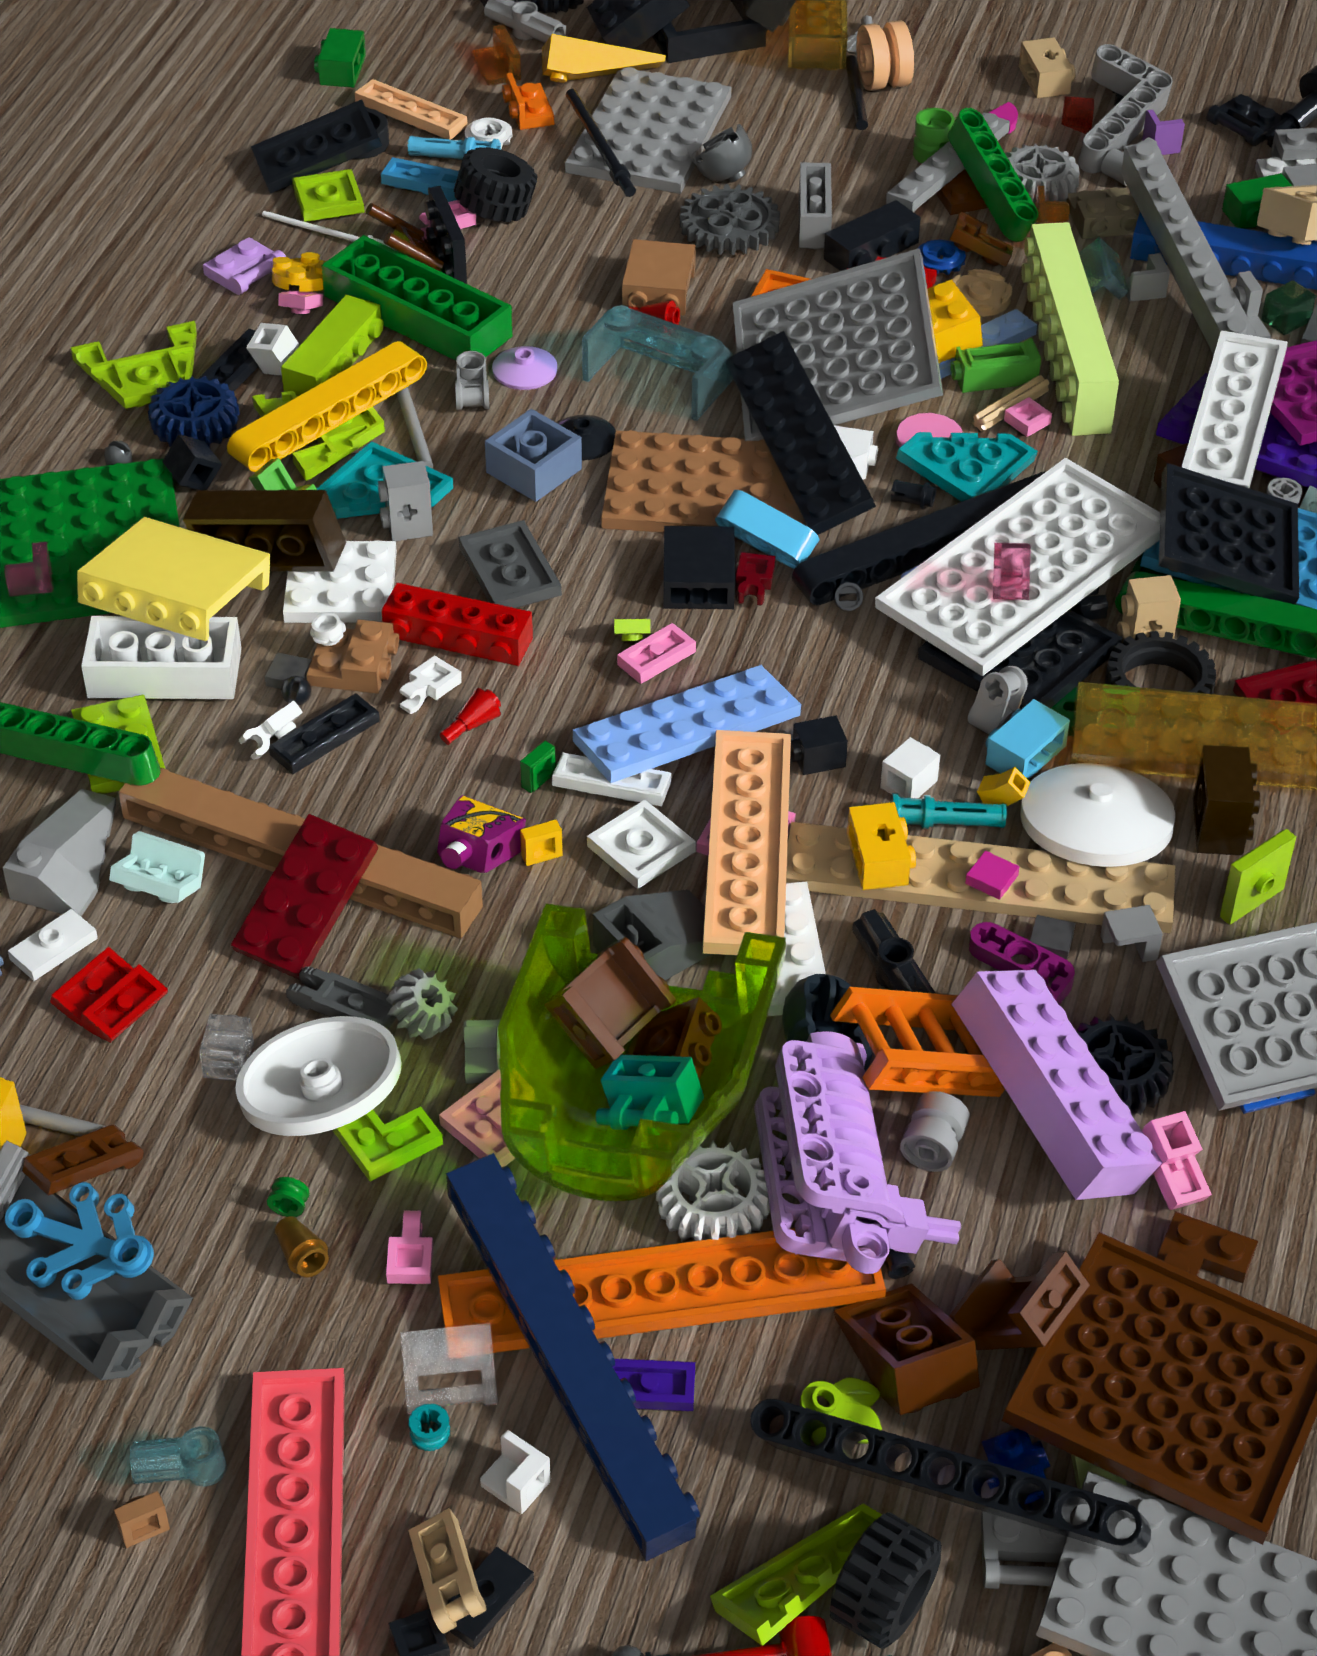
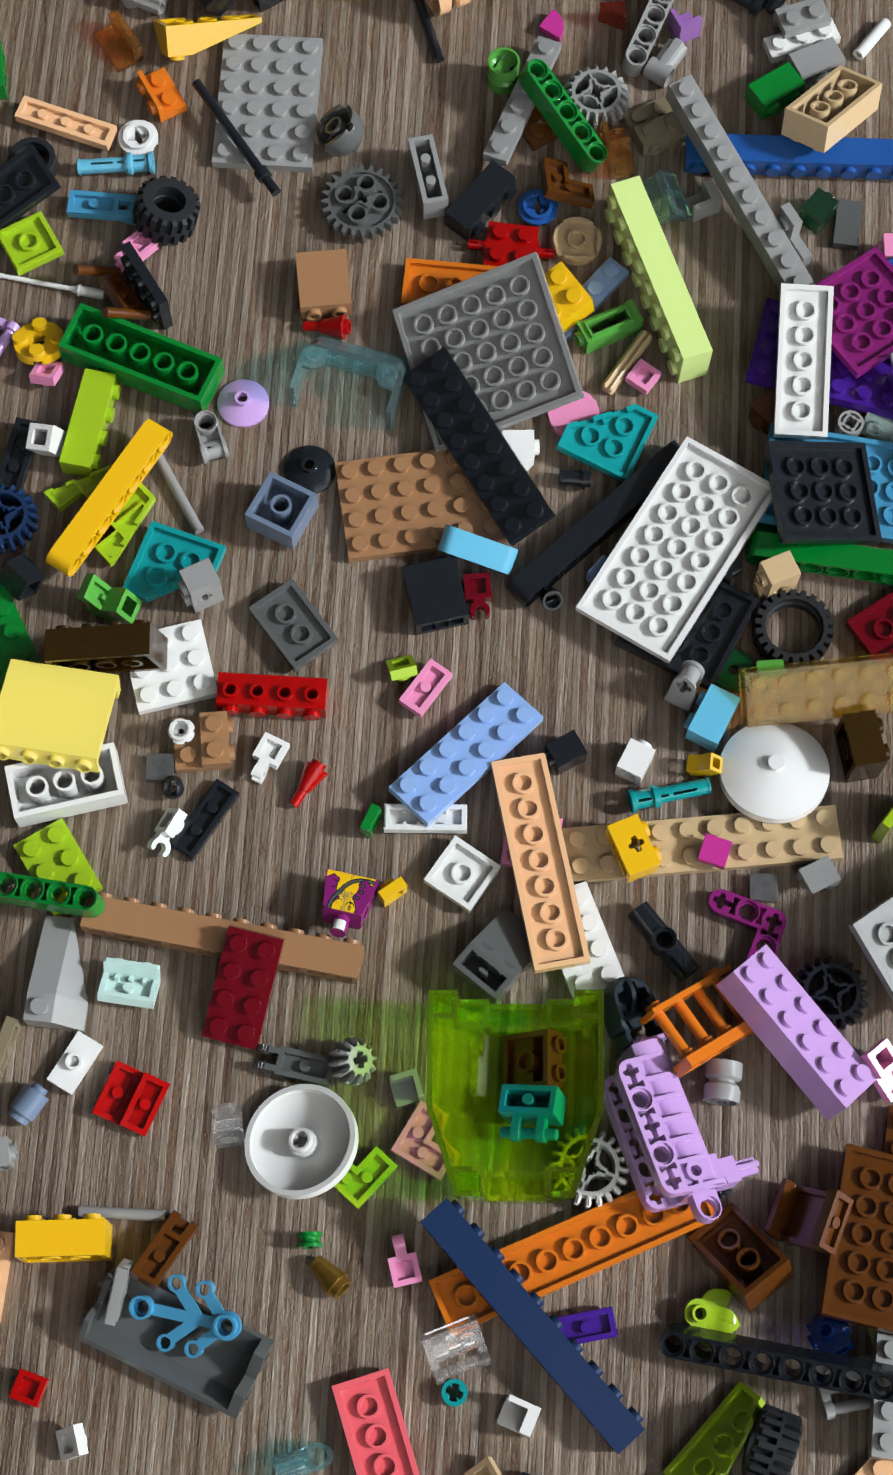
camera: 15 degrees left, 25 degrees up
(610, 1002) = (486, 1046): reddish brown panel -> none
(1011, 571) = (673, 572): clear pink panel -> none

